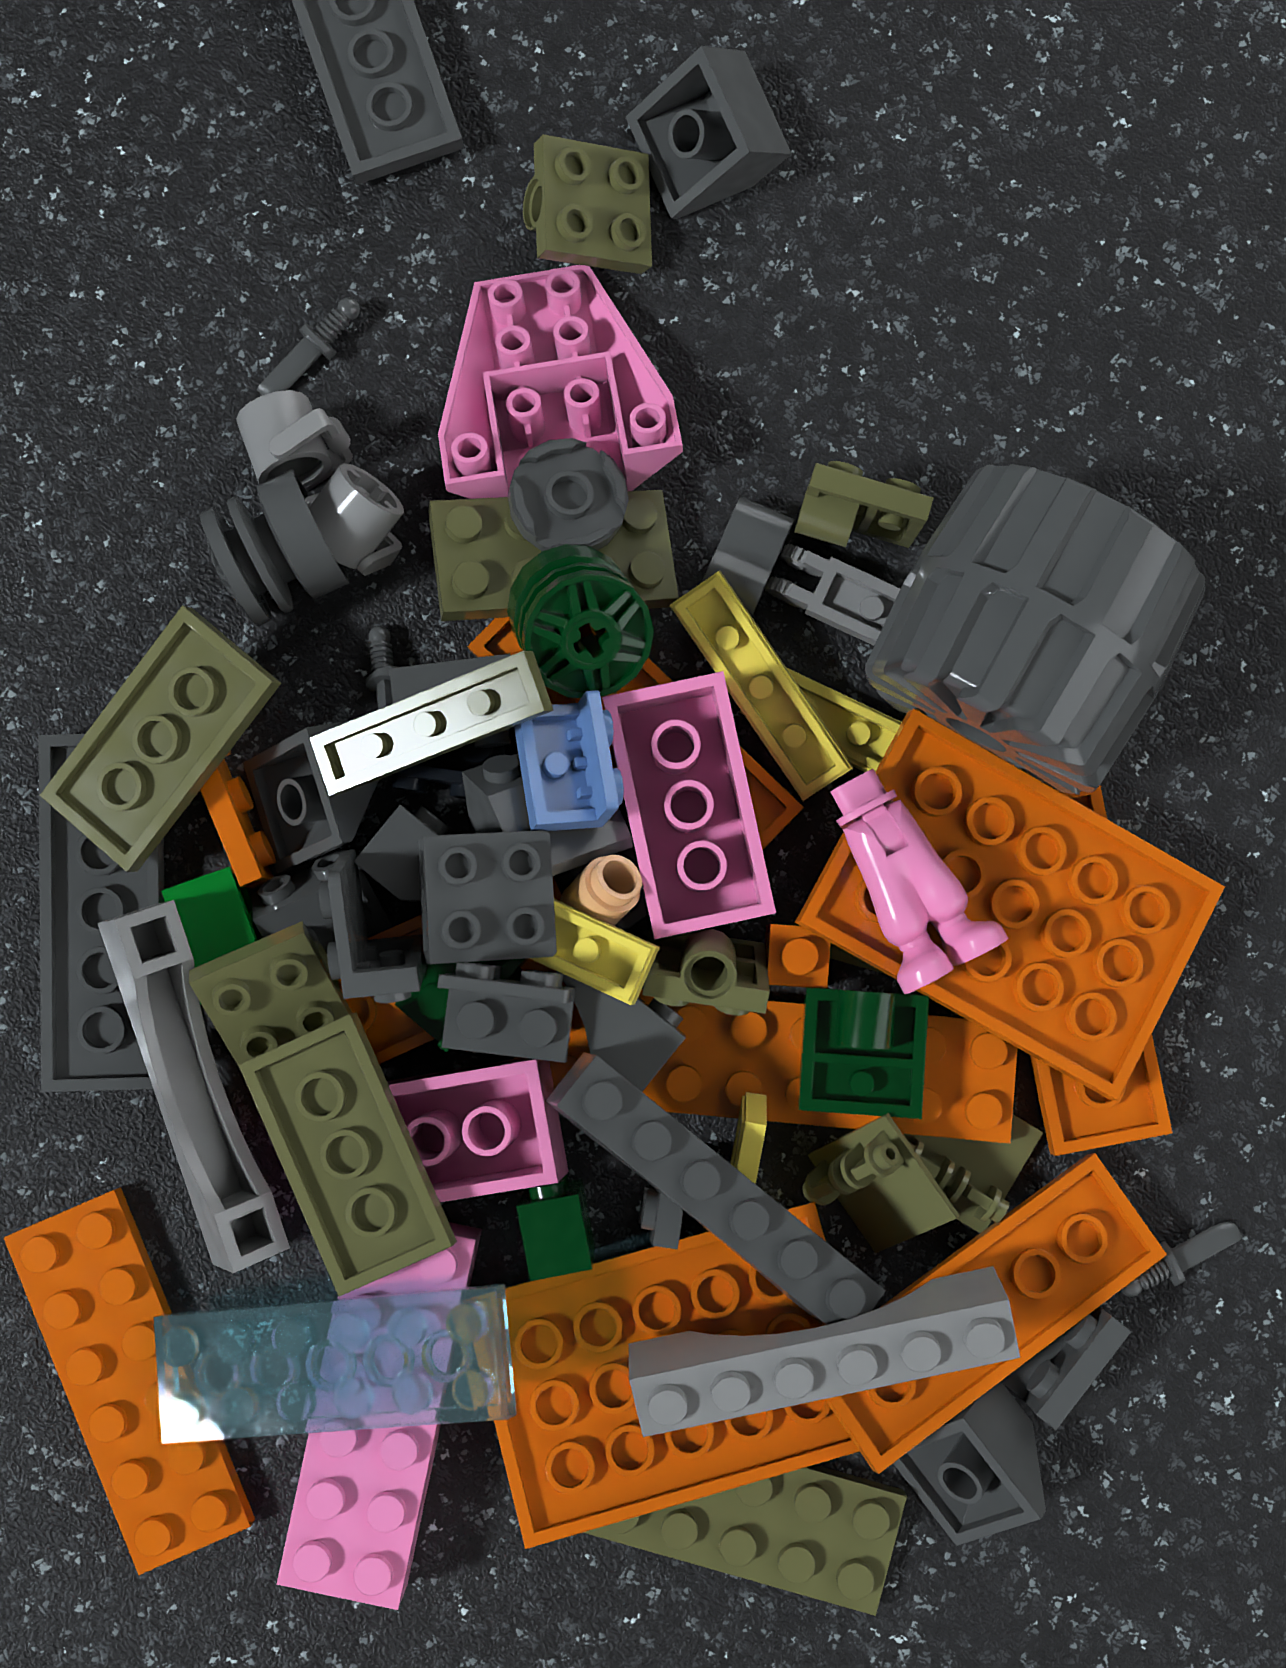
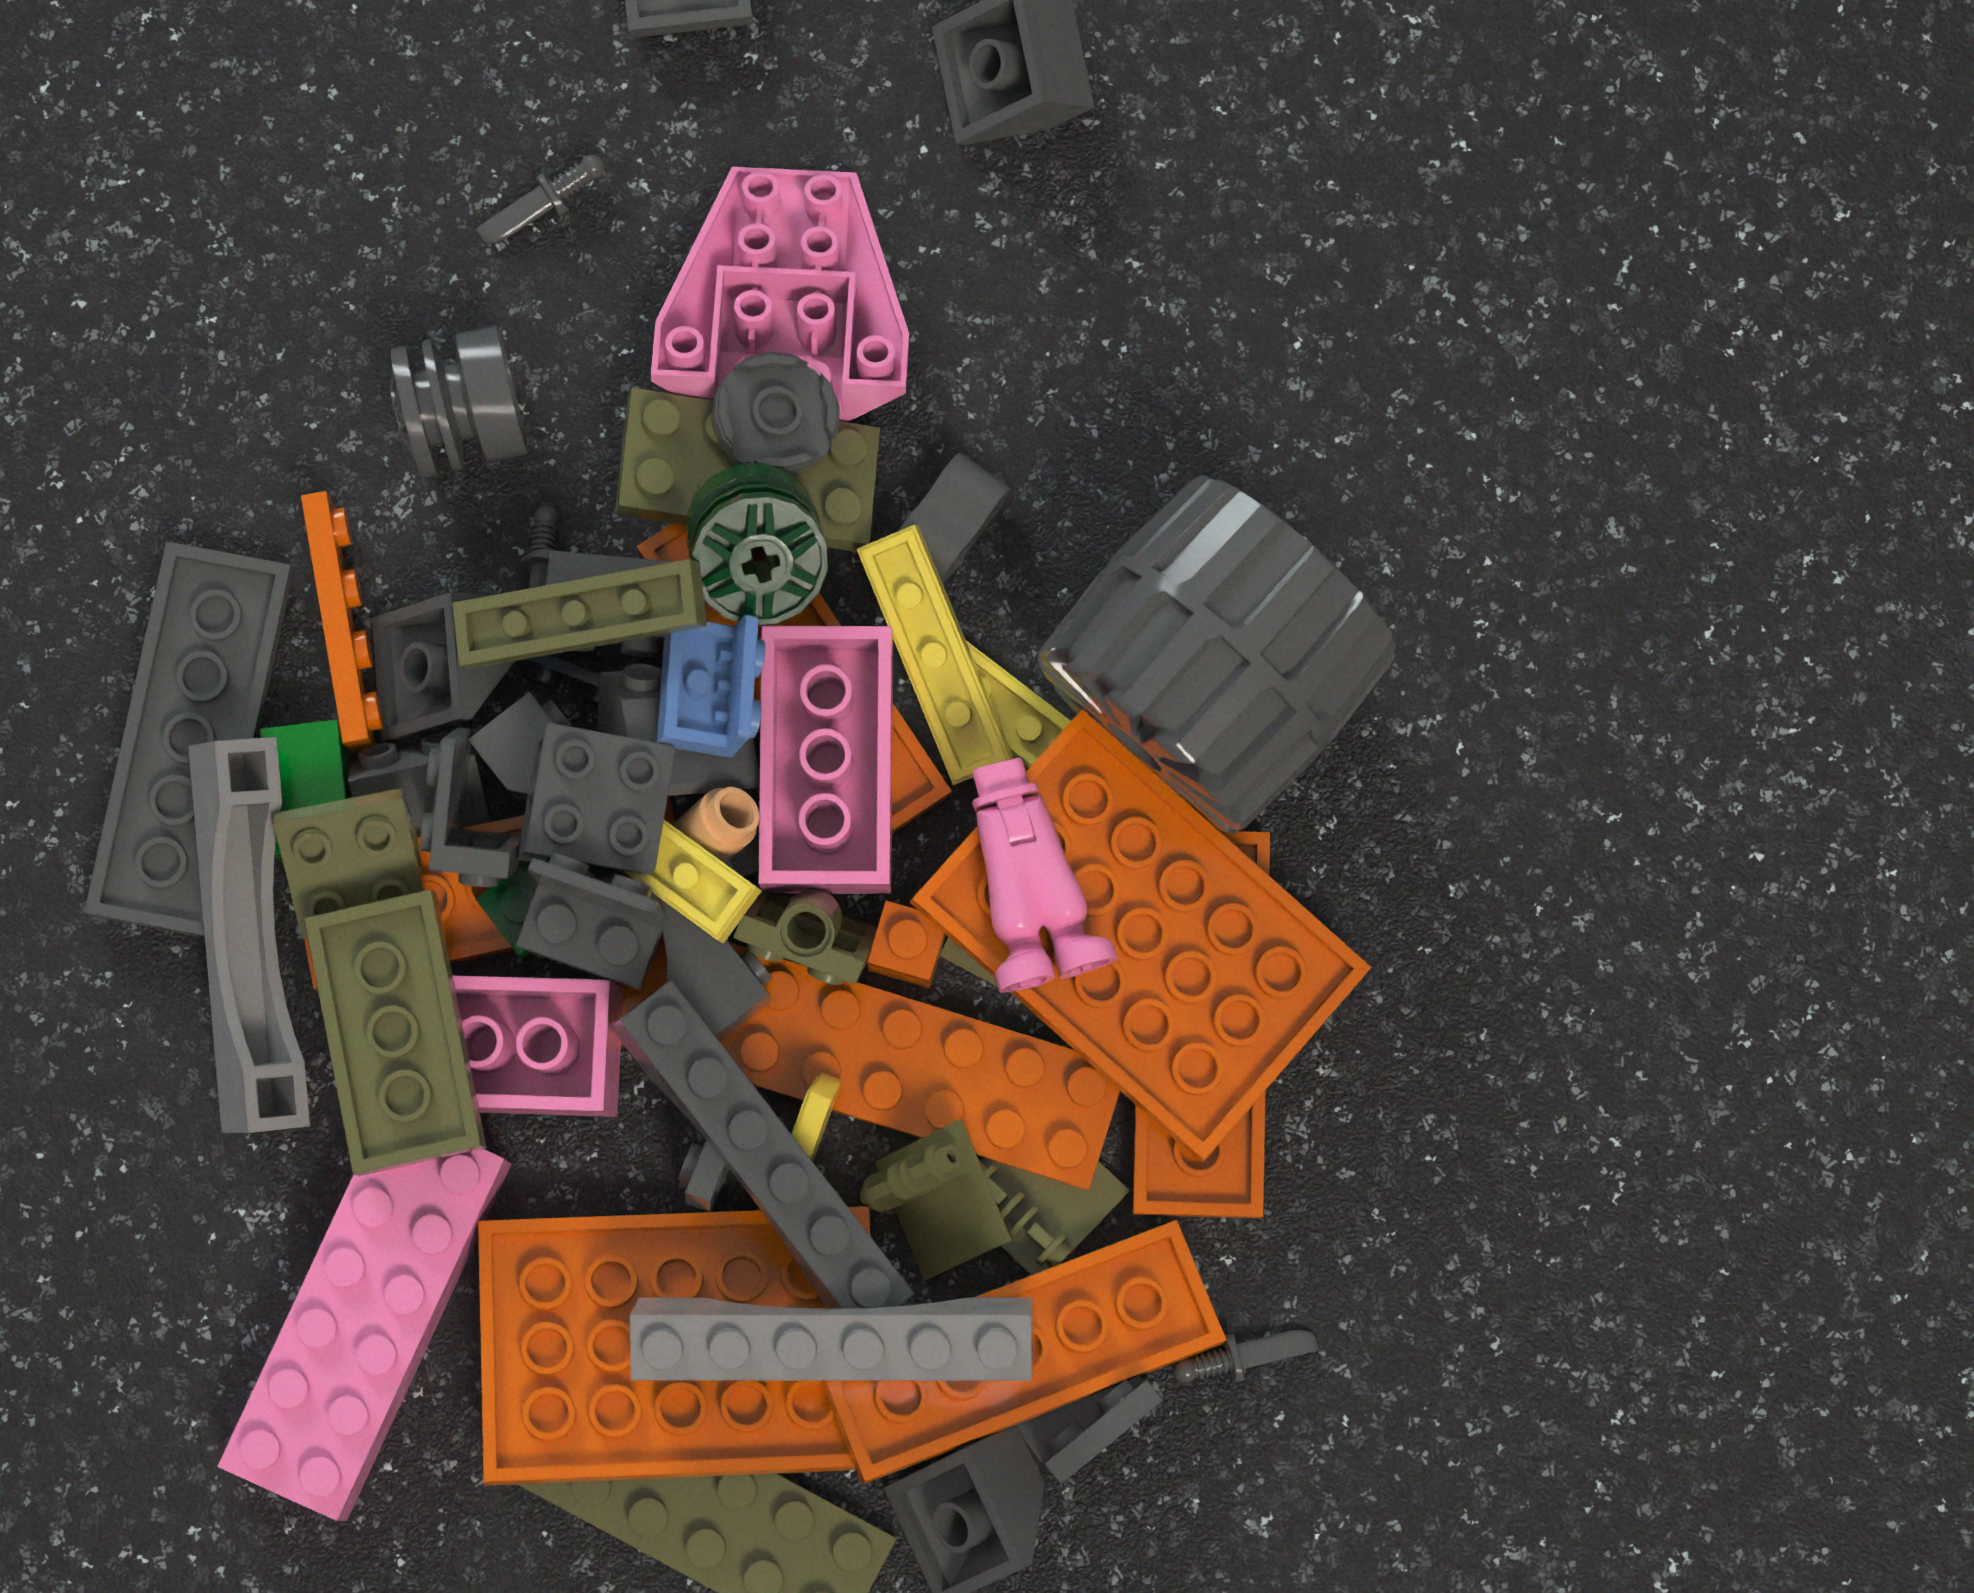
camera: 10 degrees right, 5 degrees down
(97, 1316) = (104, 1237): orange plate -> none
(160, 739) = (296, 572): olive plate -> none
(288, 434) = (497, 286): light grey piece -> none
(335, 1365) = (329, 1247): clear light blue plate -> none
(357, 518) = (551, 388): light grey piece -> none
(556, 1229) = (591, 1163): dark green brick -> none
(590, 205) = (871, 115): olive plate -> none
(843, 597) = (1045, 578): light grey hinge -> none
(845, 501) = (1059, 482): olive plate -> none
(863, 1052) = (951, 1053): dark green plate -> none

